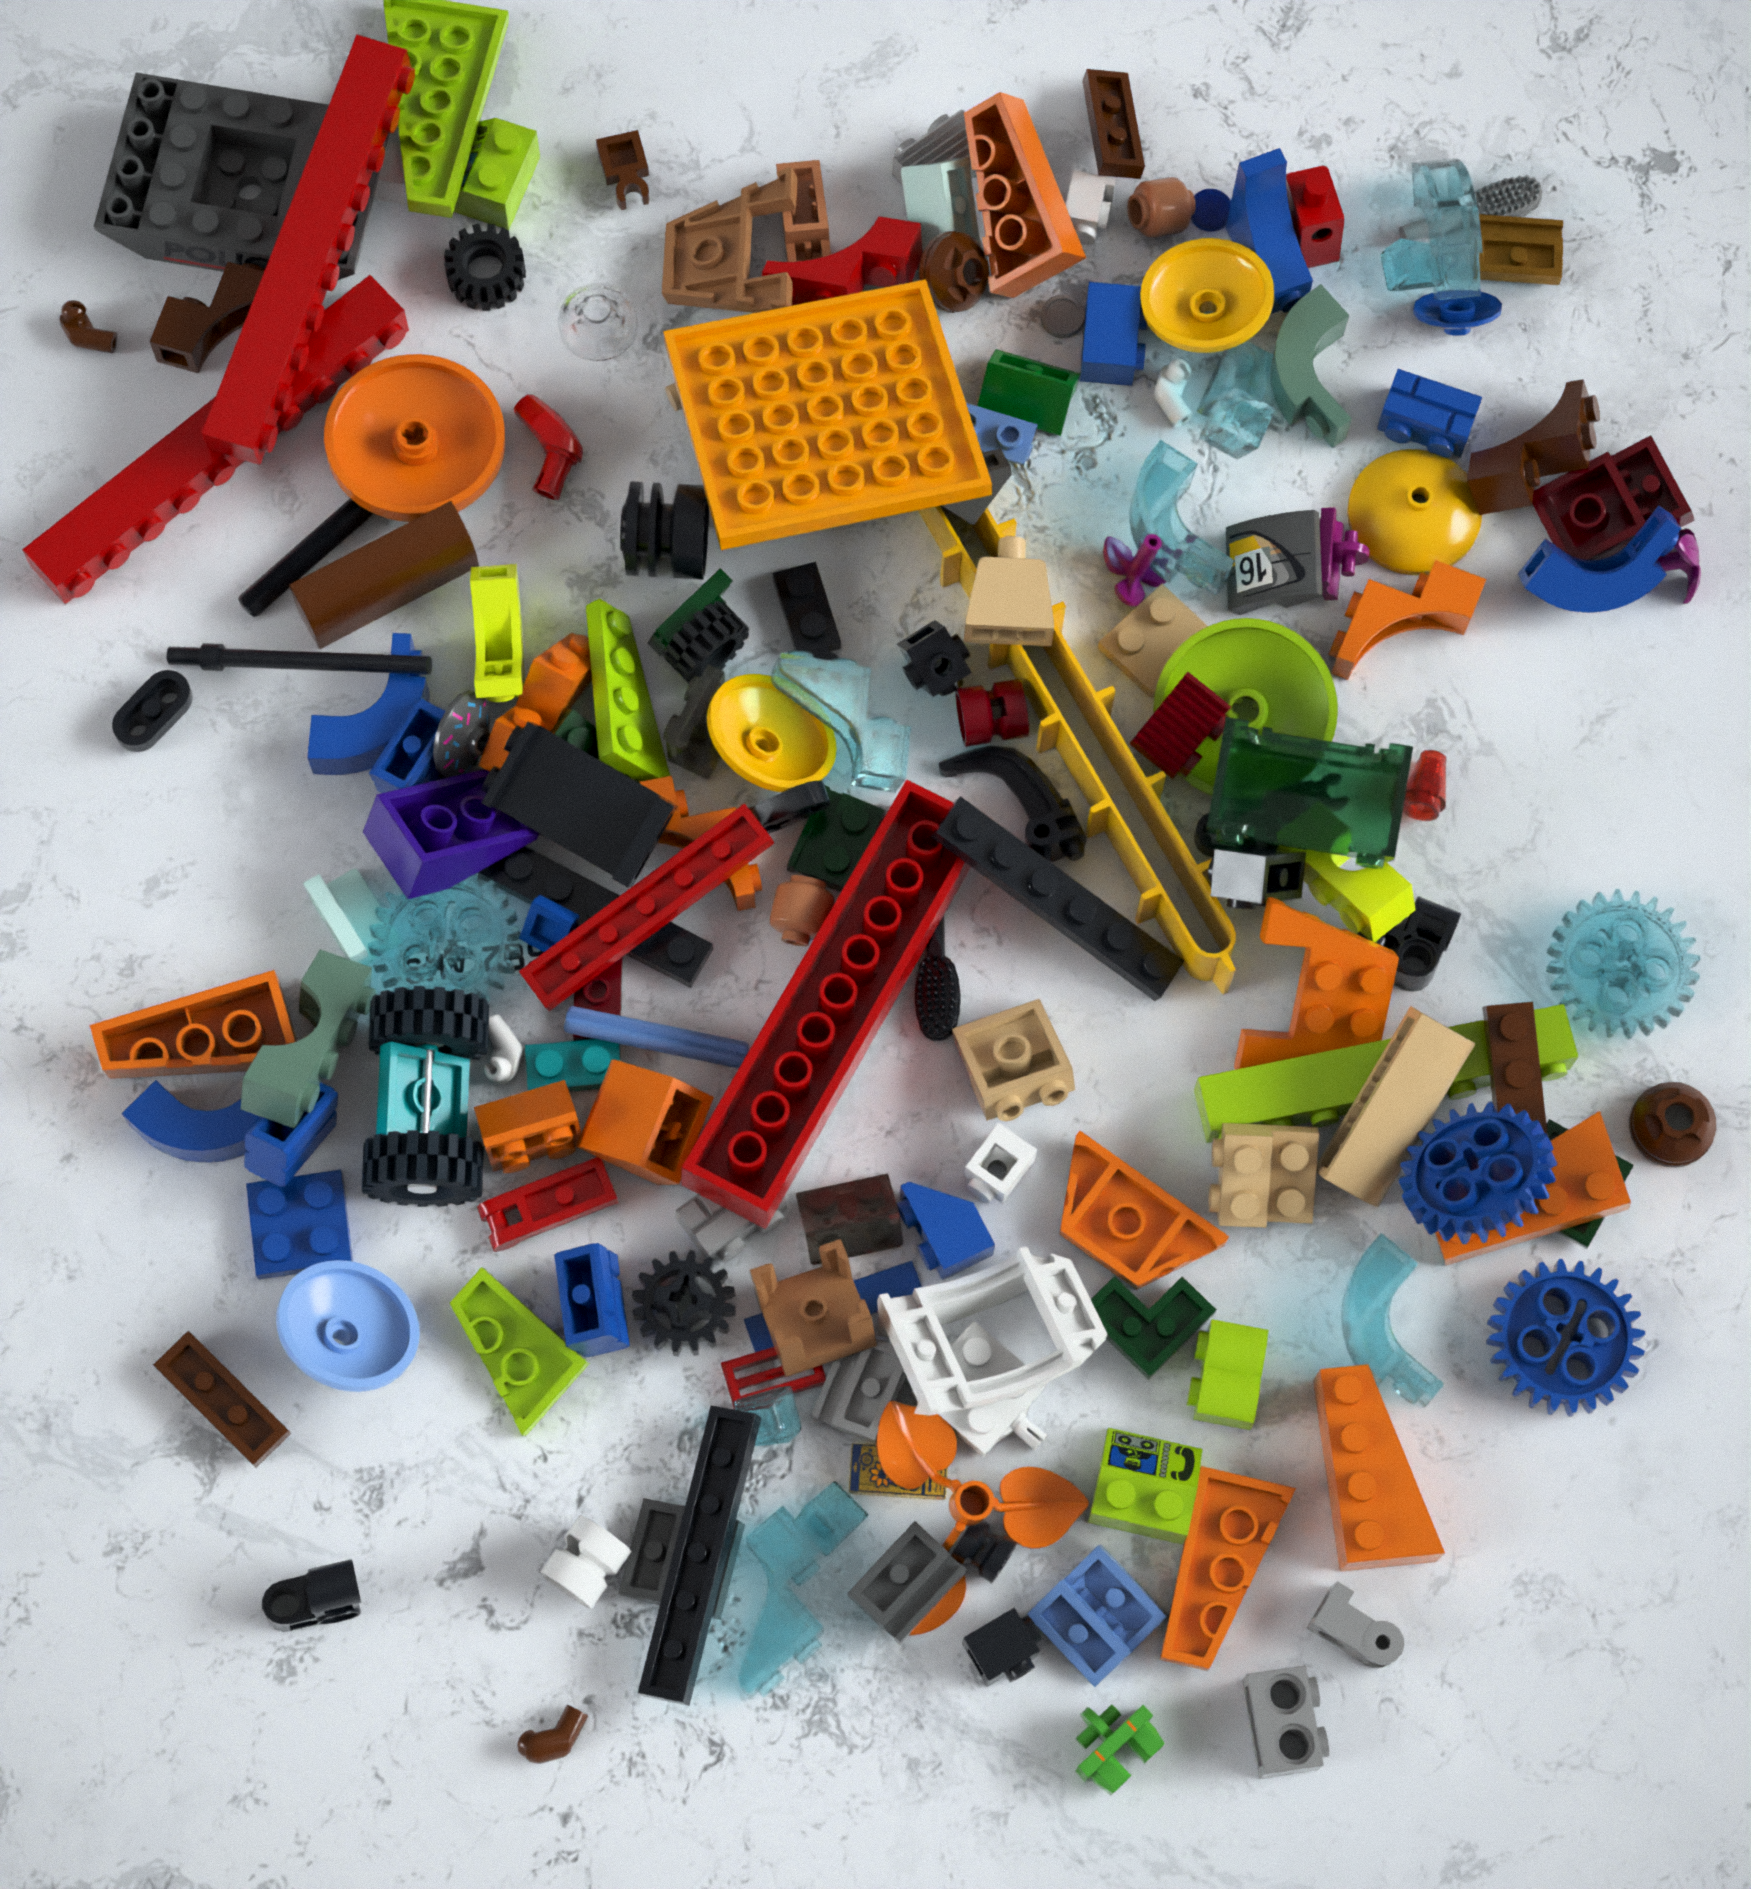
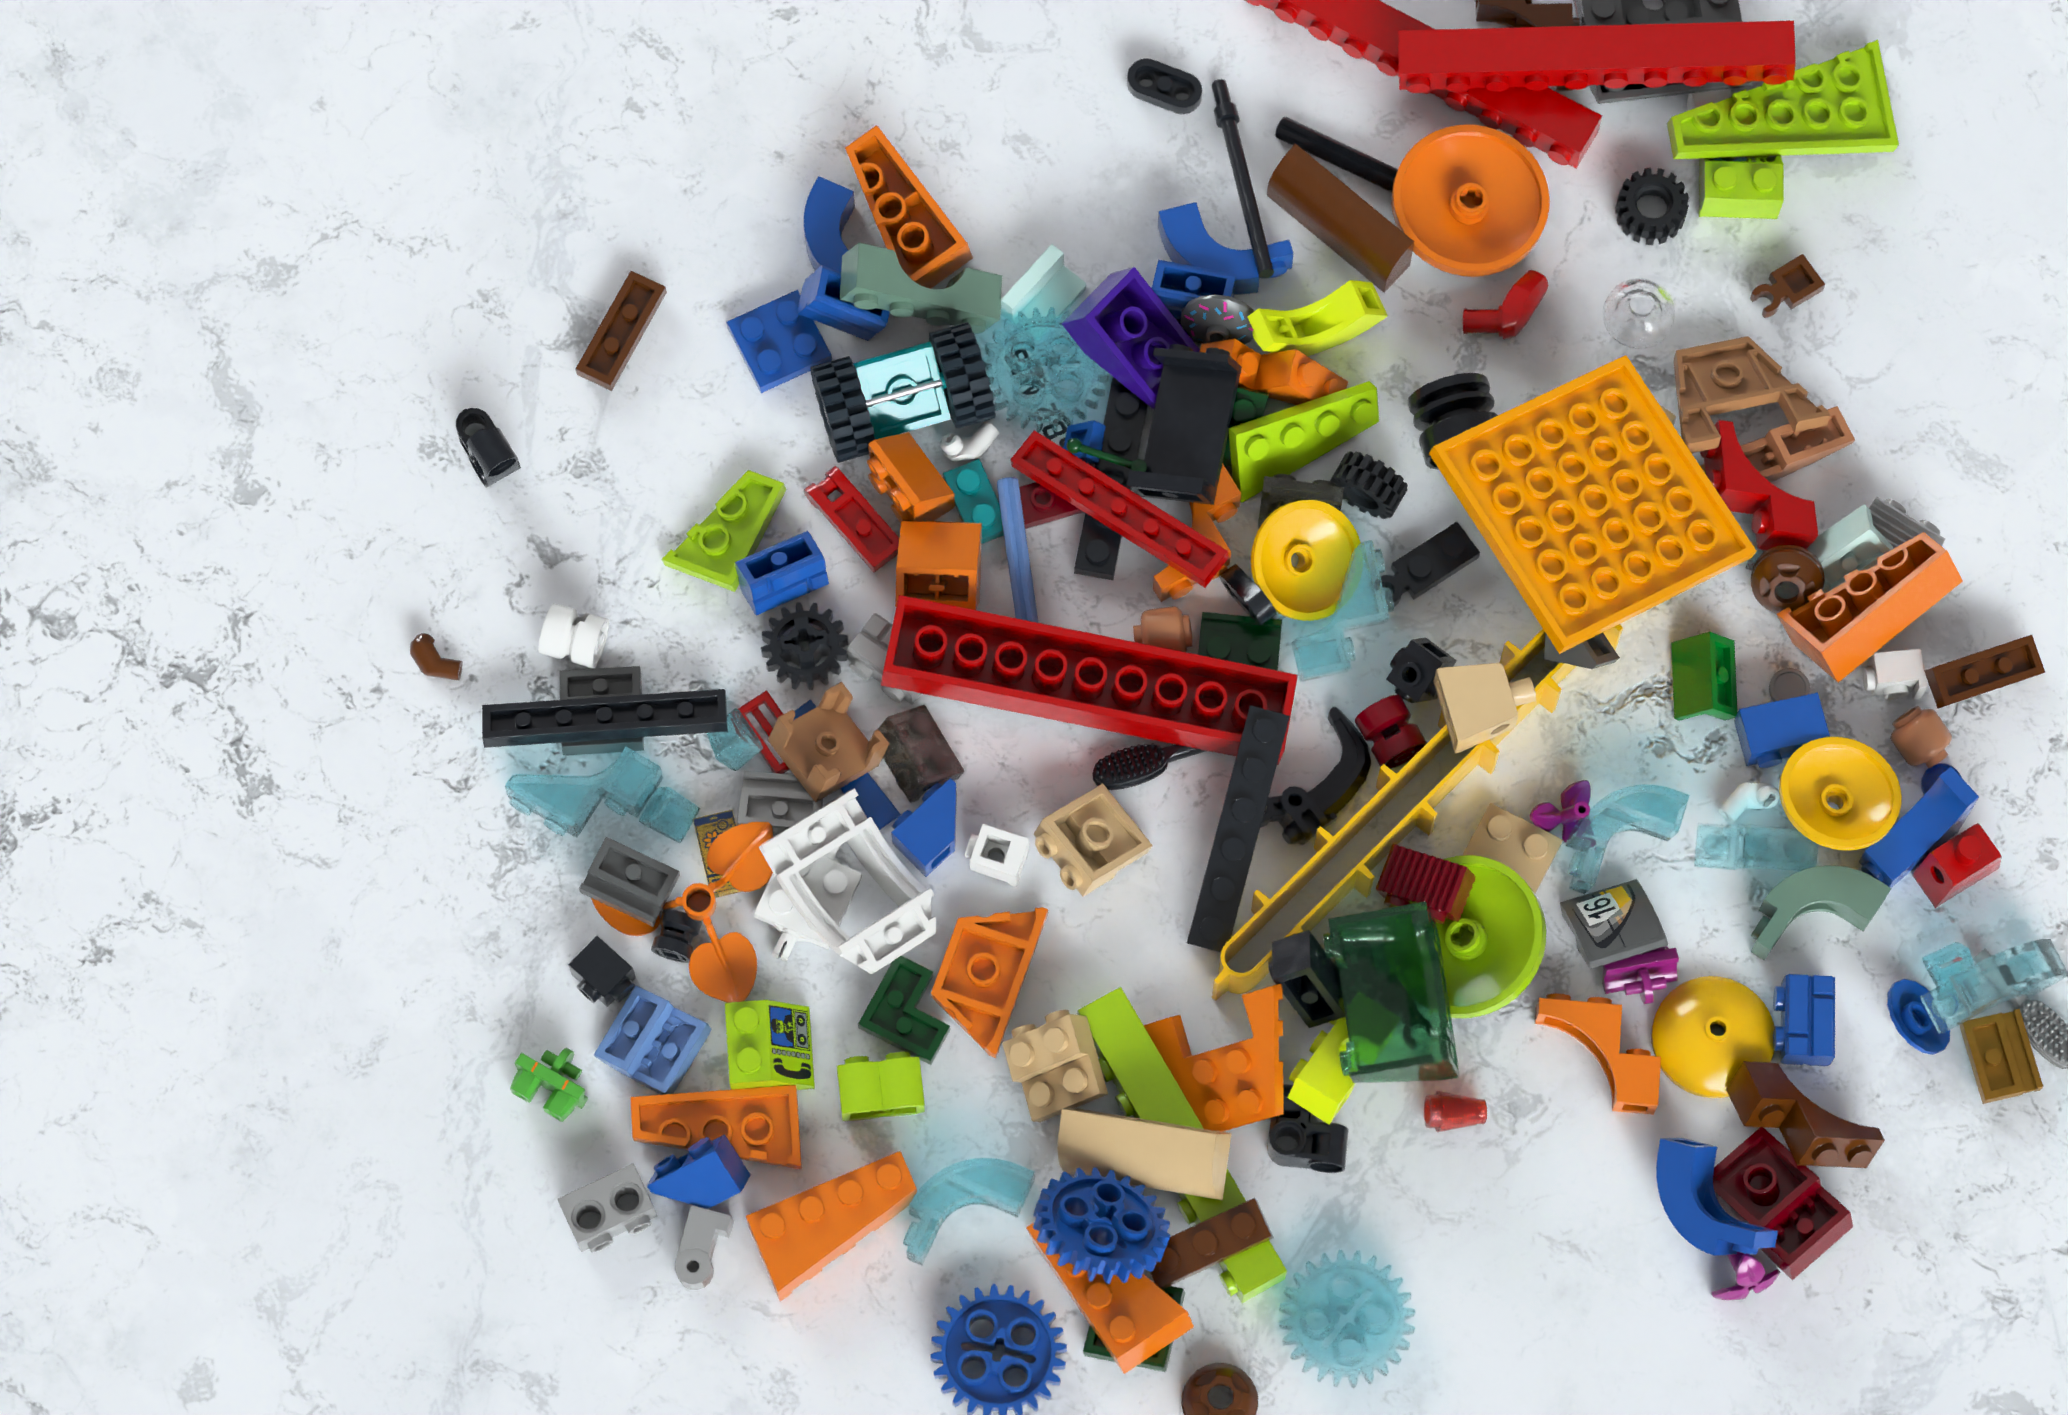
camera: 75 degrees right, 0 degrees up
(357, 1308) = (725, 395): light blue dish -> none
(603, 874) = (1074, 446): none -> dark green hinge
(708, 593) = (1413, 473): dark green plate -> none
(1003, 432) = (1647, 655): medium blue hinge -> none
(1278, 1603) = (702, 1176): none -> blue slope

